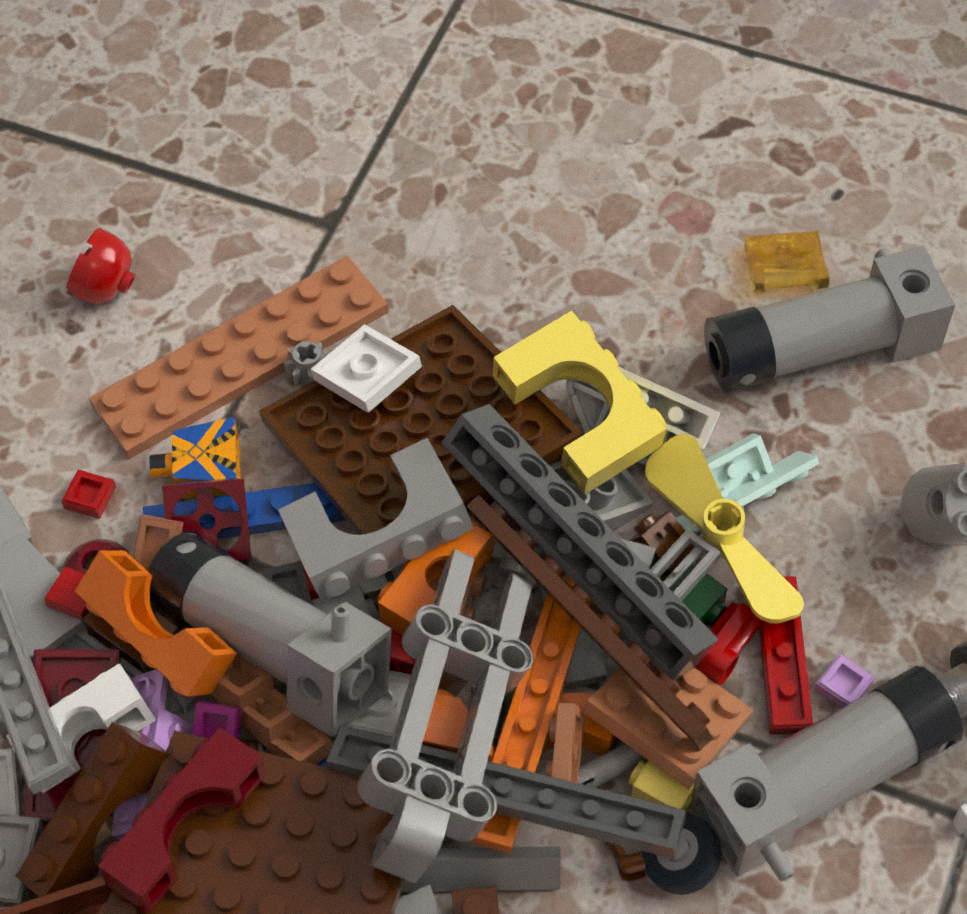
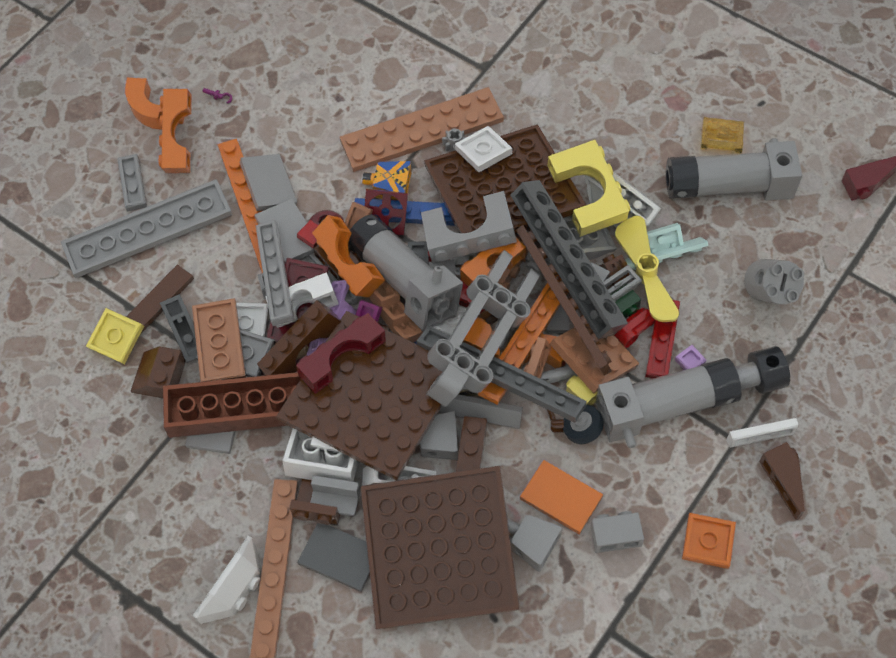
camera: 15 degrees right, 5 degrees up
(88, 494) = (329, 186): red tile -> none
(101, 270) = (359, 70): red cylinder -> none

